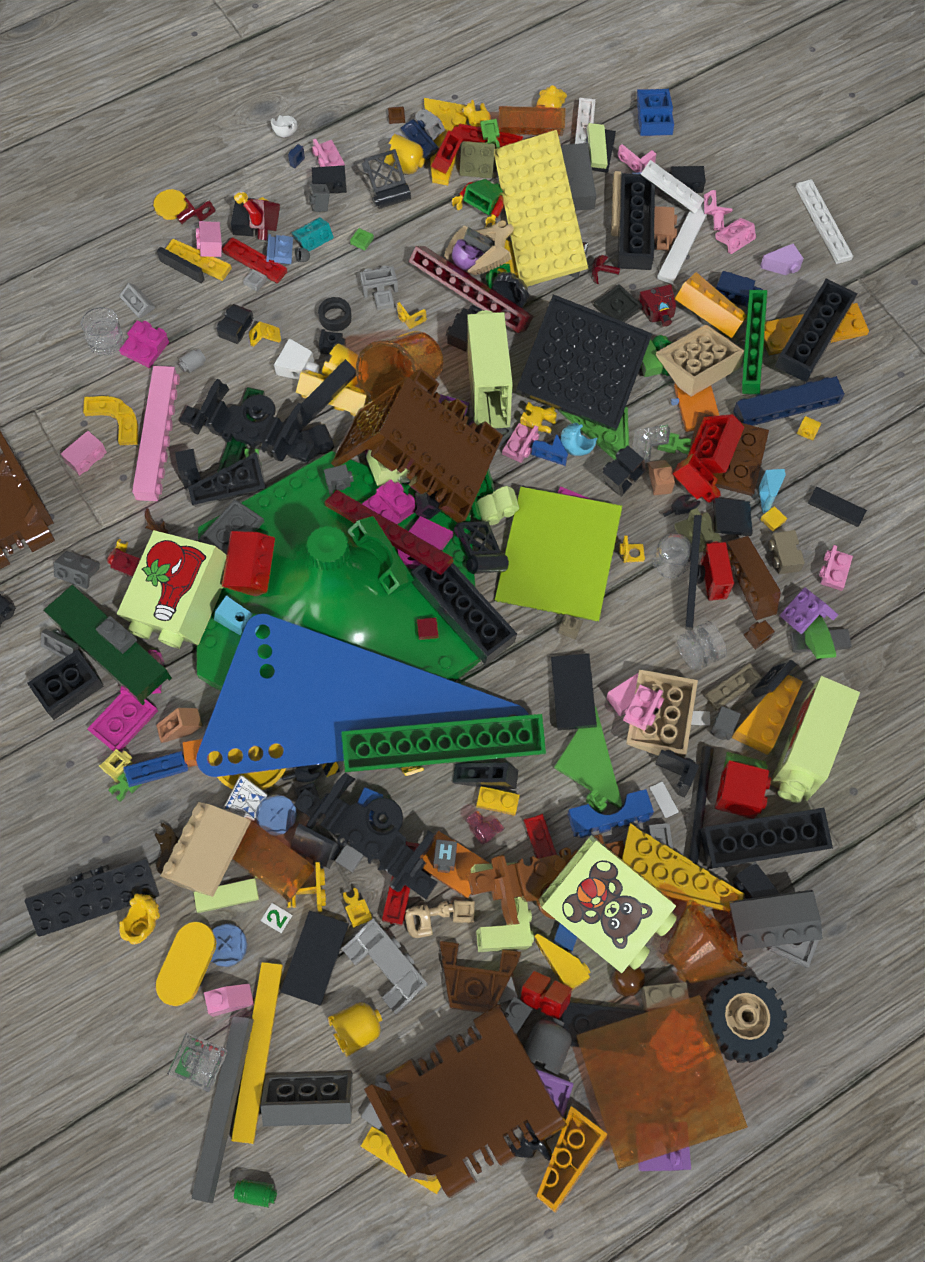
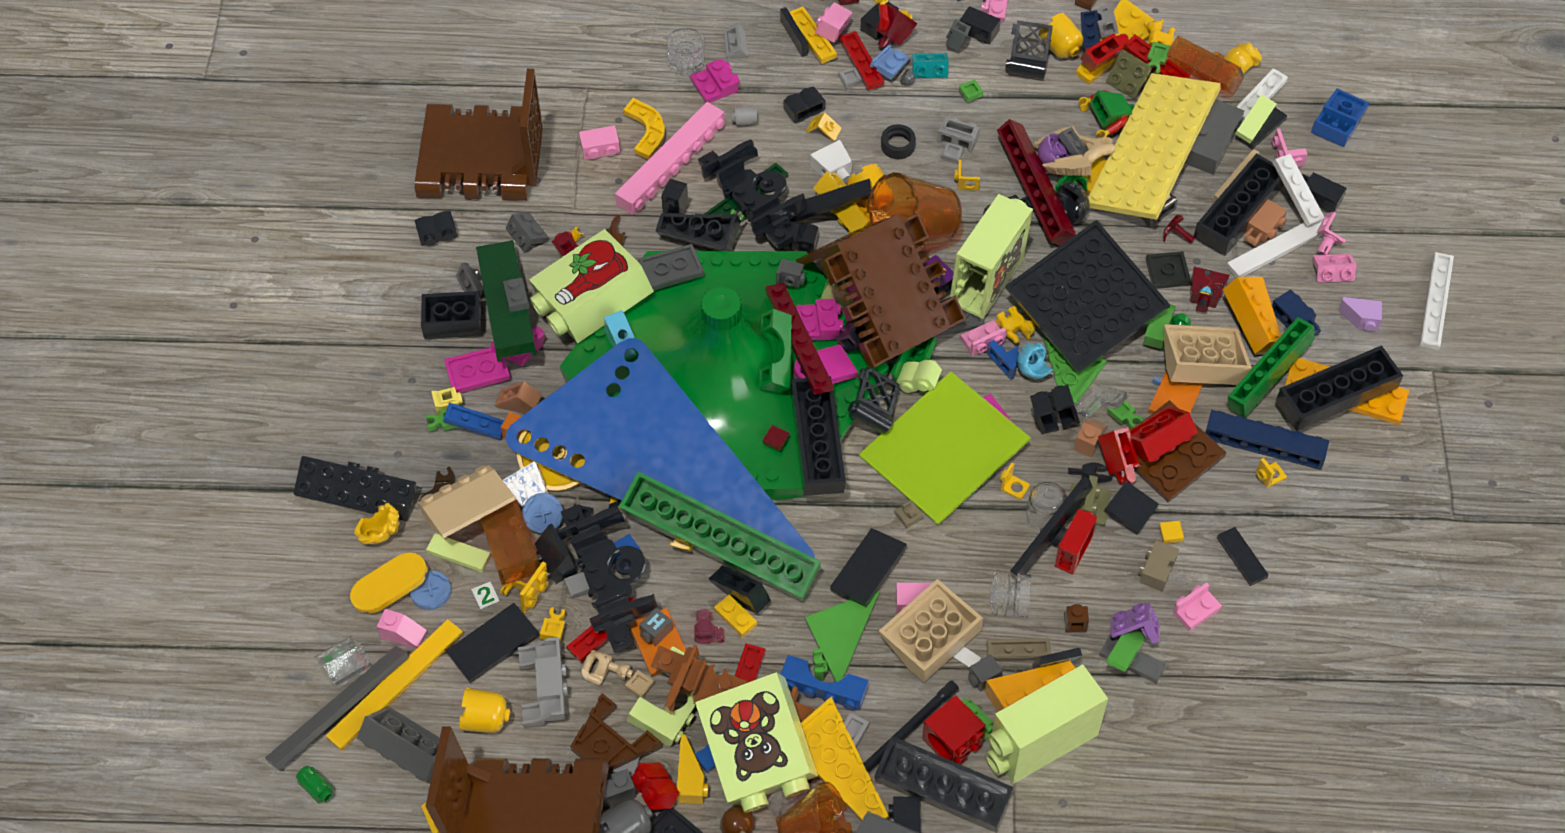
camera: 35 degrees right, 10 degrees down
(248, 562) = (662, 297): red slope -> none
(303, 775) = (589, 496): black hand -> none
(329, 340) = (876, 157): black brick -> none
(643, 706) = (915, 609): bright pink bracket -> none
(664, 799) = (882, 704): white sticker -> none
(682, 766) = (913, 689): black bracket -> none
(754, 578) = (1106, 567): reddish brown wedge -> none
(769, 487) = (1185, 501): medium azure tile -> none

